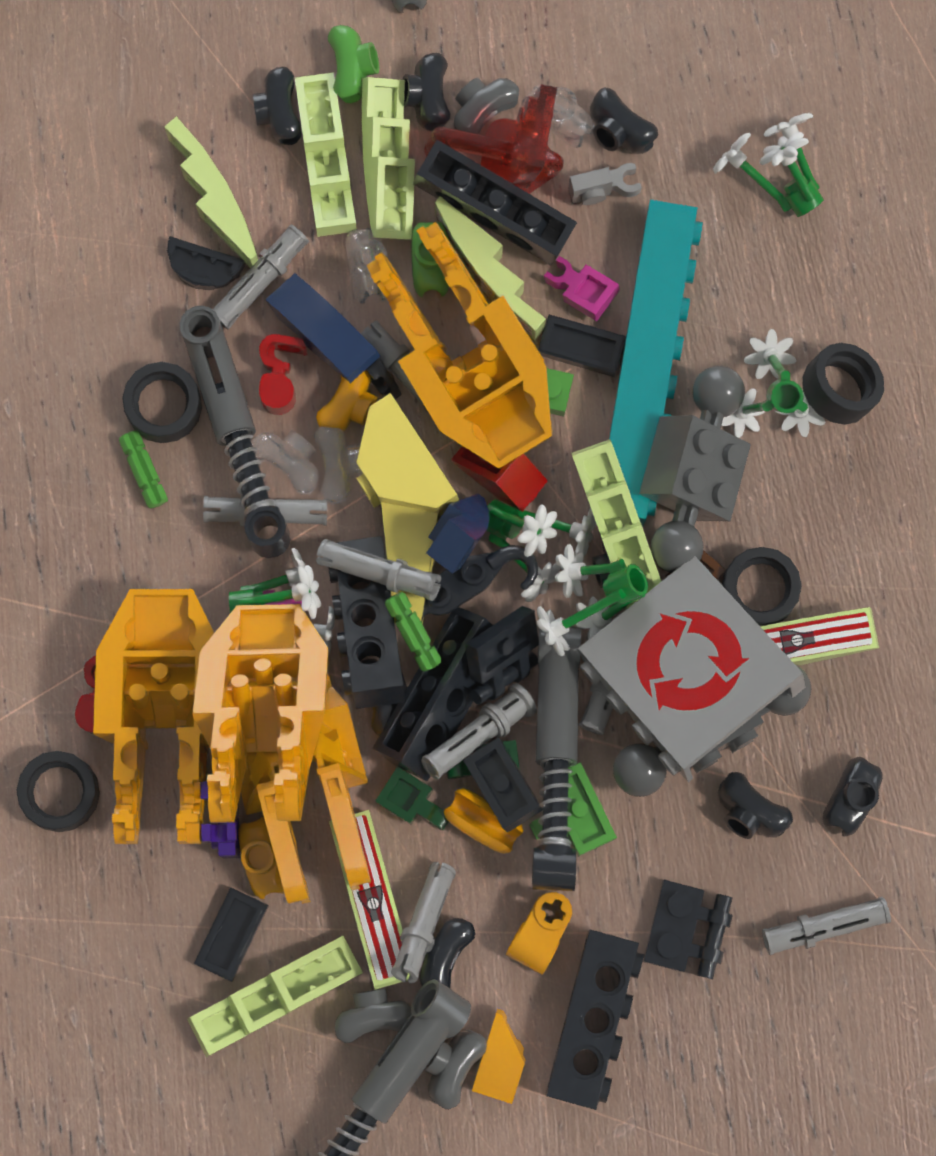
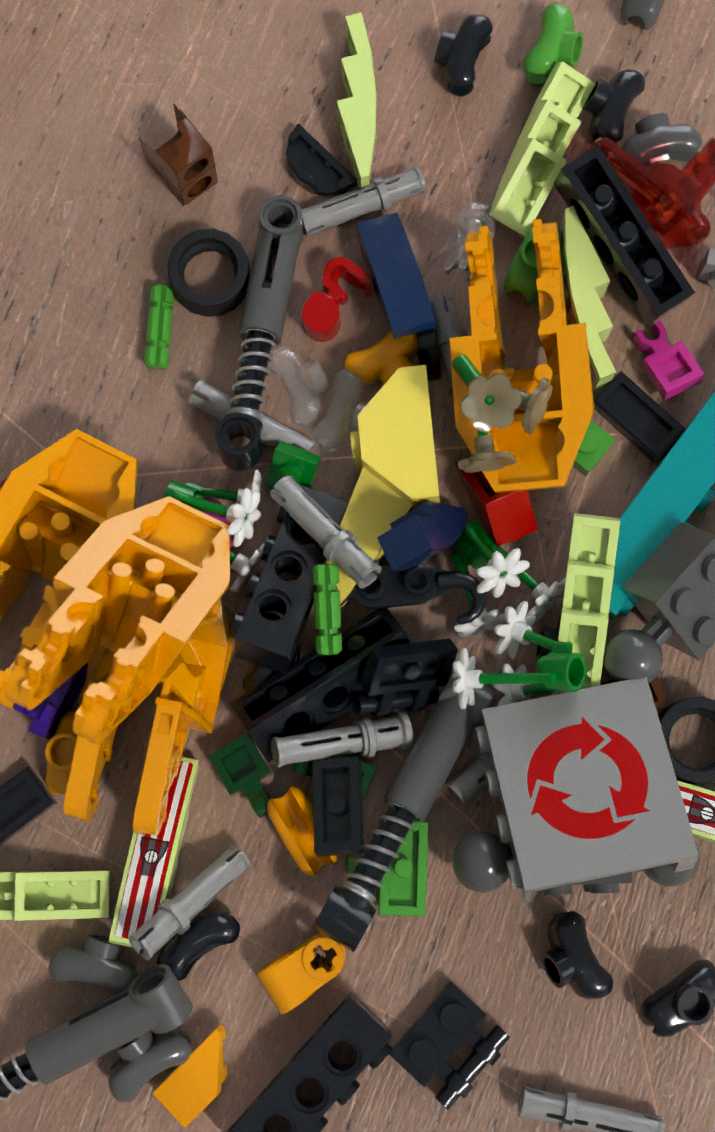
camera: 30 degrees right, 0 degrees up
(89, 317) = (184, 161): none -> reddish brown piece
(317, 527) = (293, 462): none -> green plate
(325, 154) = (484, 118): yellowish green slope -> none
(465, 401) = (492, 404): none -> dark tan plant

